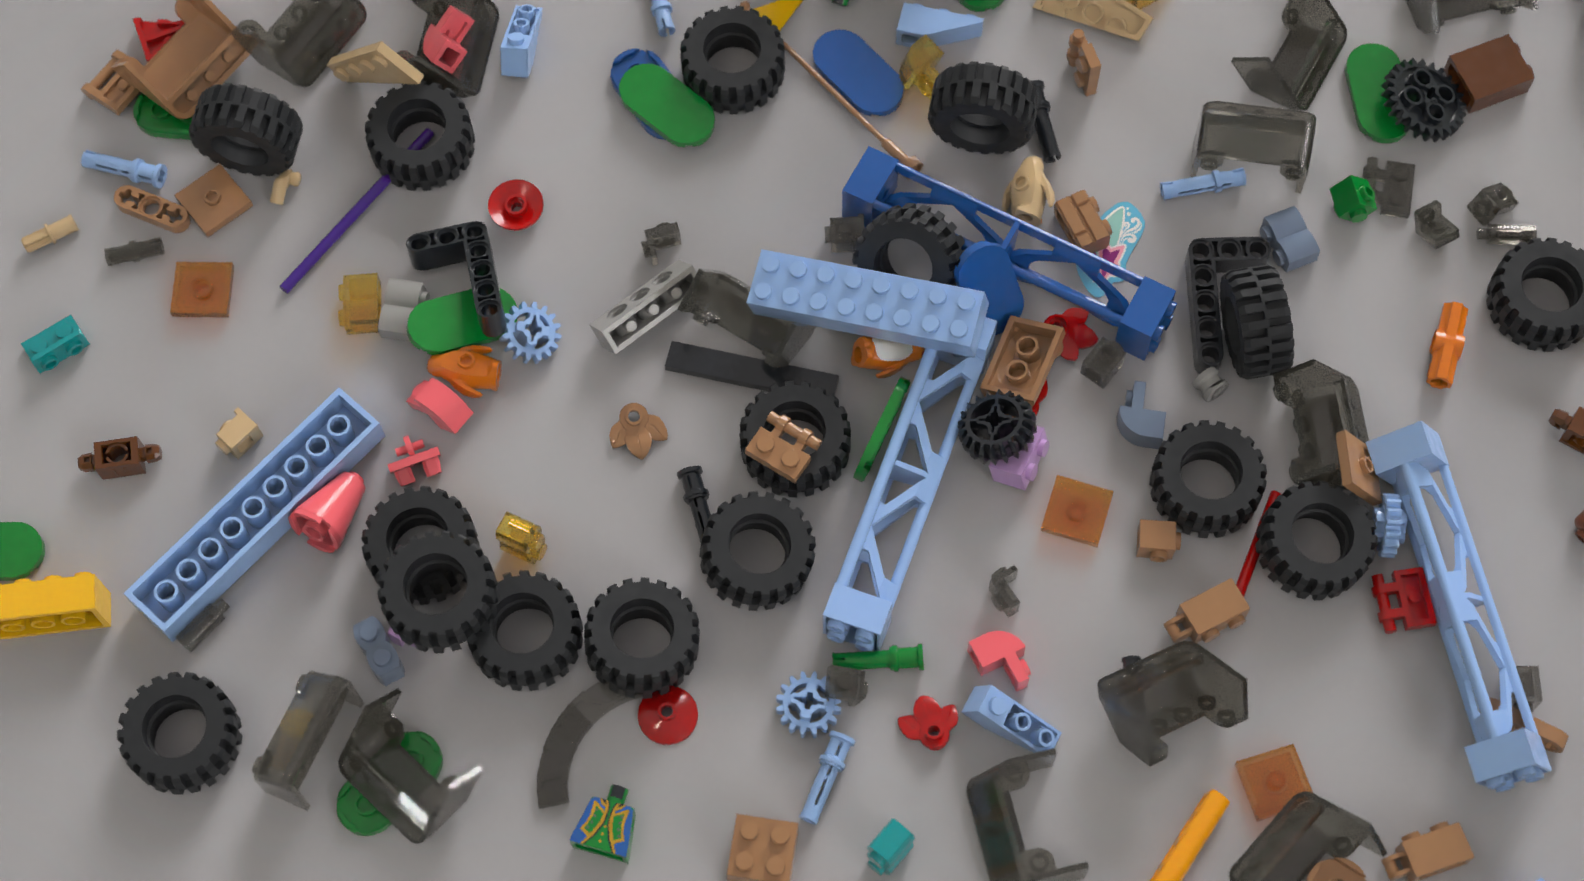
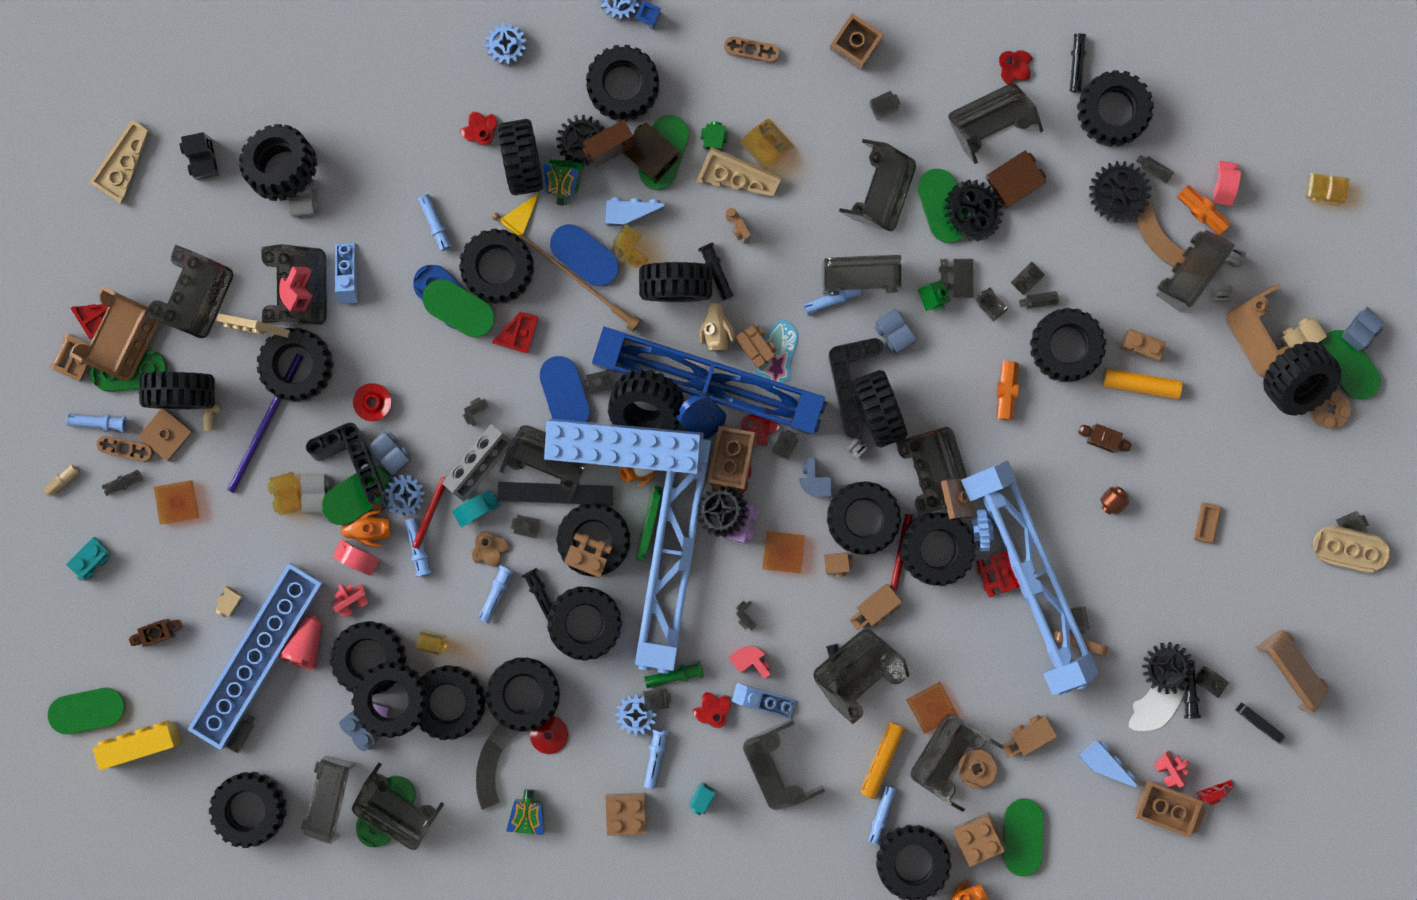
camera: 15 degrees left, 20 degrees up
(523, 275) = (389, 453): none -> sand blue brick
(532, 422) = (419, 556): none -> light blue pin
(560, 366) = (429, 514): none -> red bar
(627, 365) = (475, 508): none -> teal brick
(641, 482) = (500, 585): none -> light blue pin
(703, 415) = (533, 523): none -> clear smoke brick
(743, 153) = (518, 333): none -> red wing
(792, 225) = (564, 390): none -> blue tile

